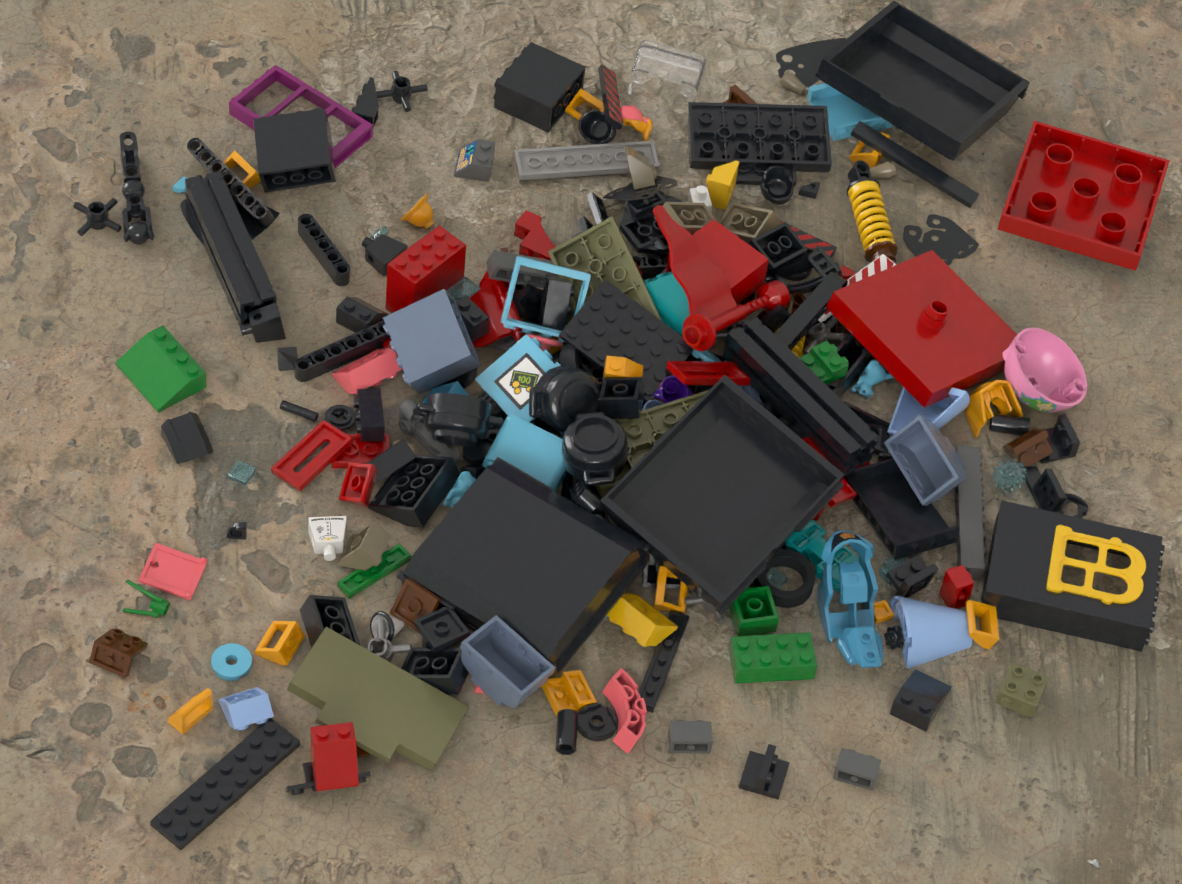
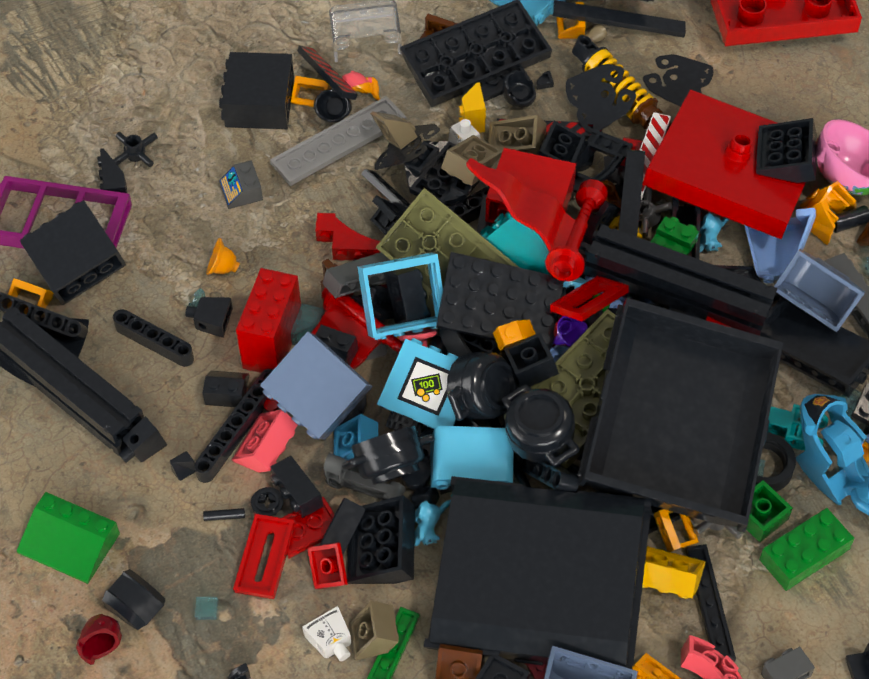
camera: 20 degrees left, 5 degrees up
(141, 452) = (98, 638): none -> dark red helmet
(835, 226) = (590, 102): none -> black piece
(980, 337) = (788, 150): none -> black slope

